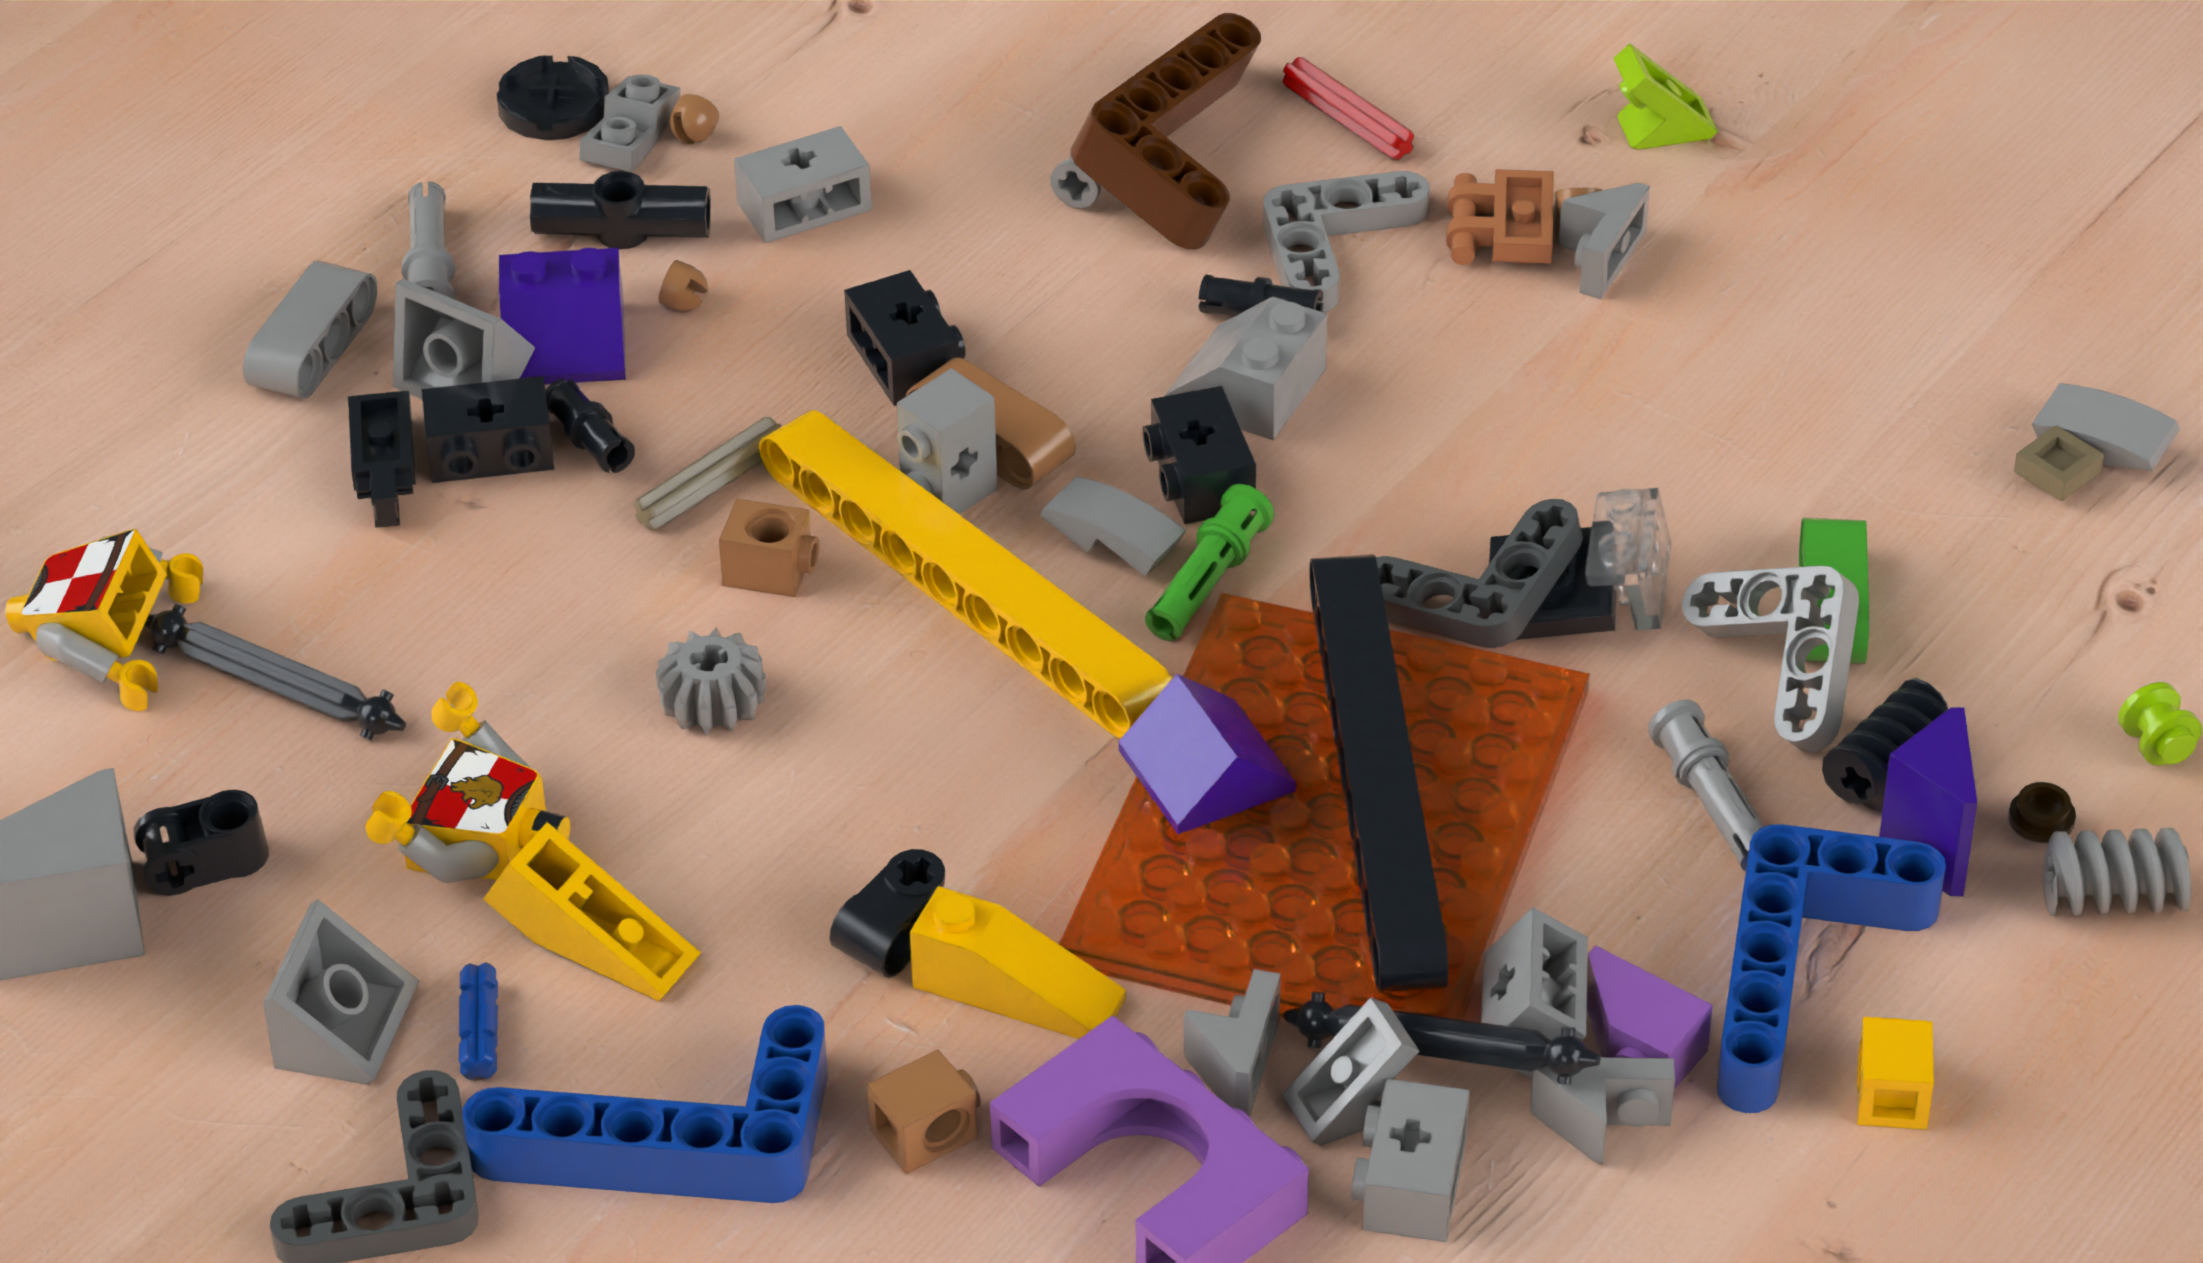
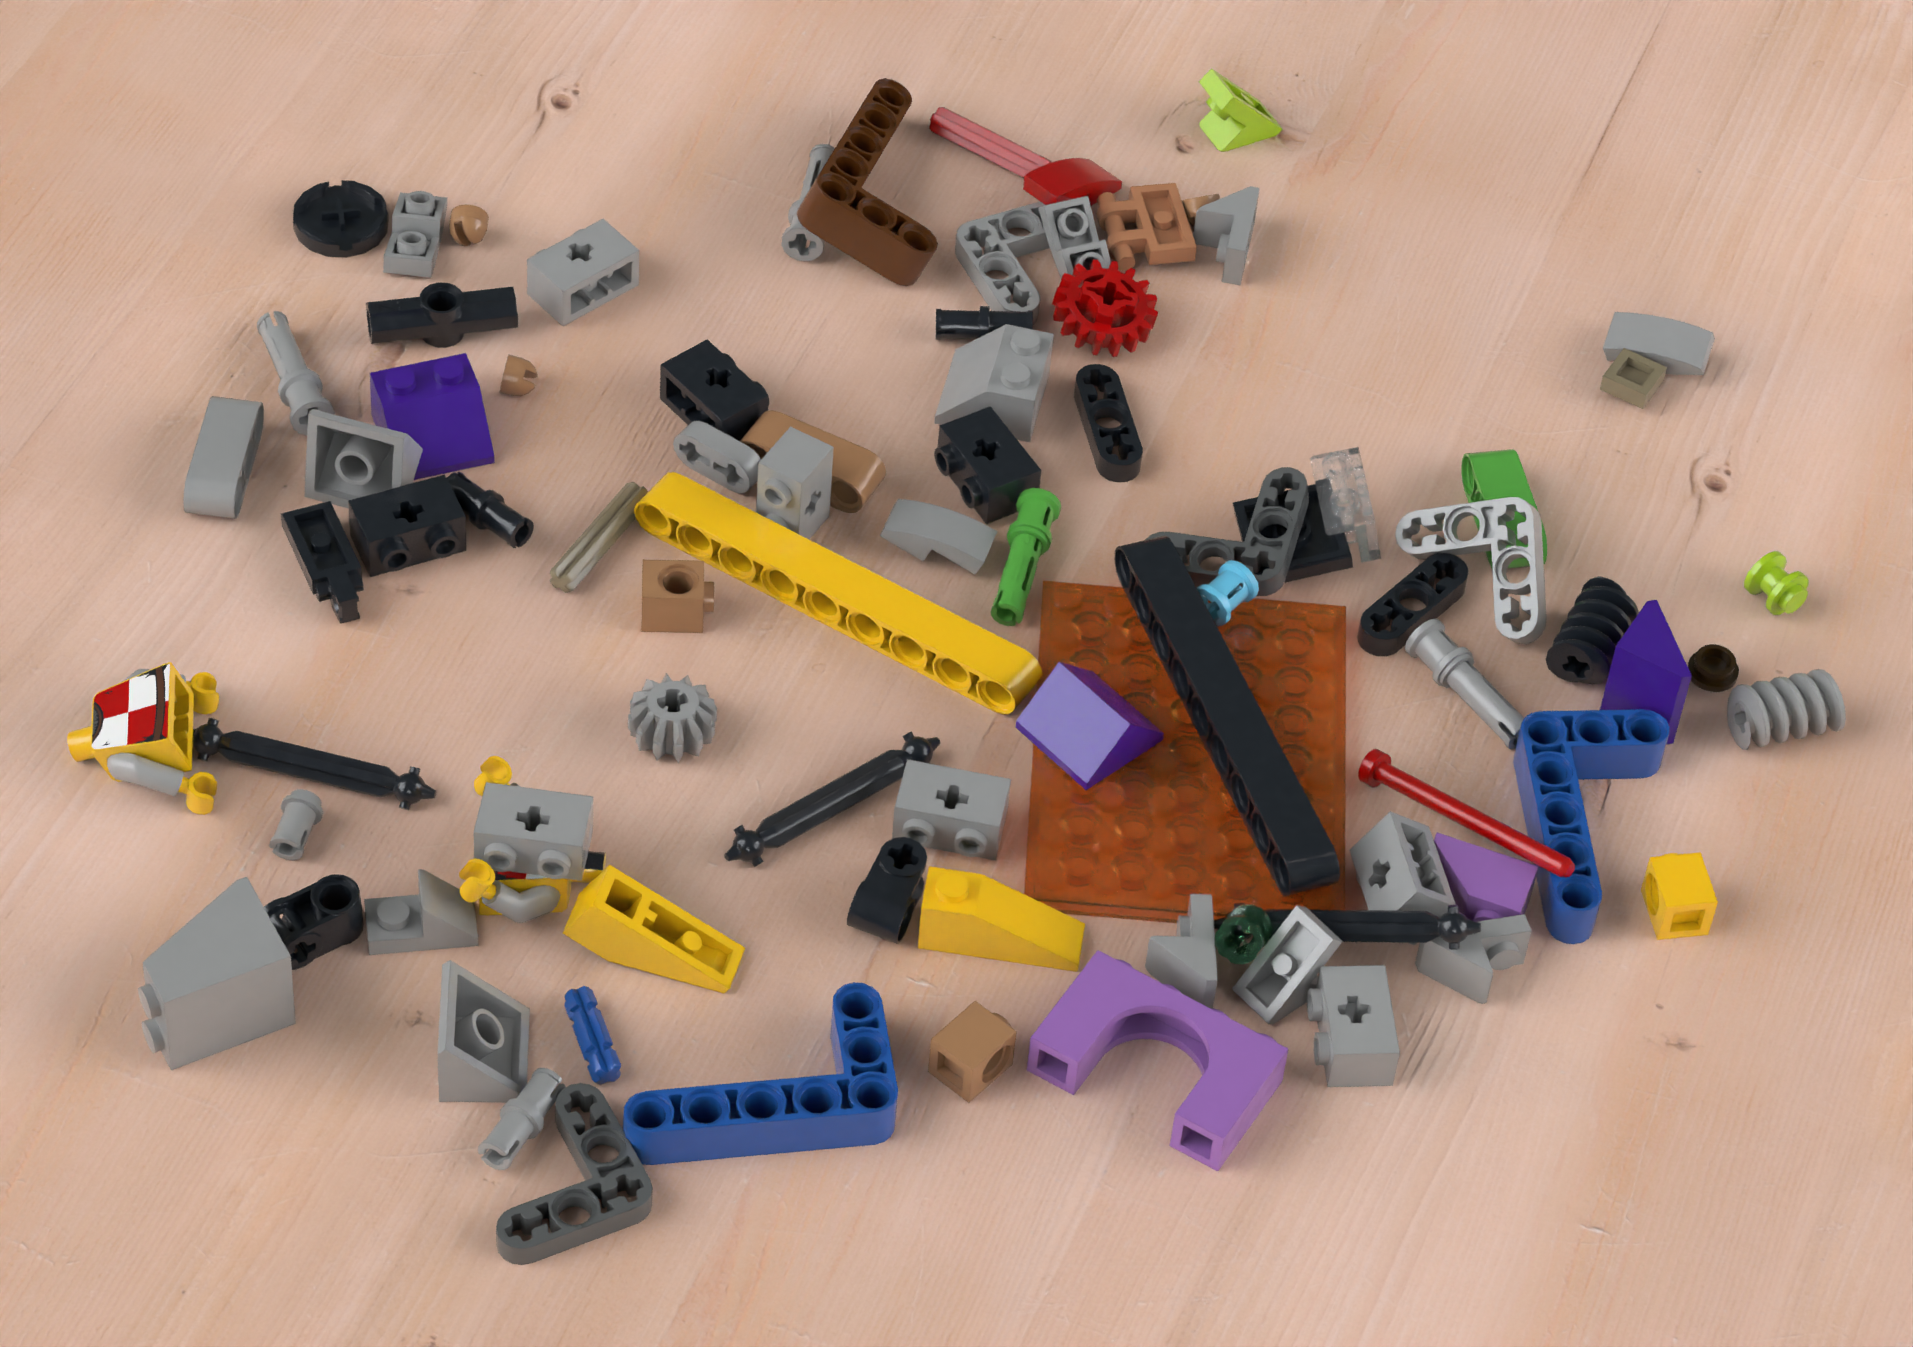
camera: 20 degrees left, 5 degrees up
(239, 722) = (300, 813): none -> light grey pin
(331, 861) = (421, 922): none -> light grey slope
(352, 1100) = (521, 1119): none -> light grey pin
(475, 773) = (534, 831): none -> light grey brick
(870, 801) = (829, 800): none -> black wheel
(872, 397) = (717, 456): none -> light grey beam
(1006, 832) = (951, 809): none -> light grey brick
(1284, 1029) = (1234, 946): none -> clear green bush
(1362, 445) = (1104, 439): none -> black beam
(1406, 227) = (1073, 235): none -> light grey slope
(1412, 298) = (1105, 308): none -> red gear
(1424, 153) = (1070, 180): none -> red slope
(1442, 609) = (1226, 592): none -> medium azure bush
(1559, 867) = (1377, 769): none -> red bar
(1715, 664) = (1417, 585): none -> black beam

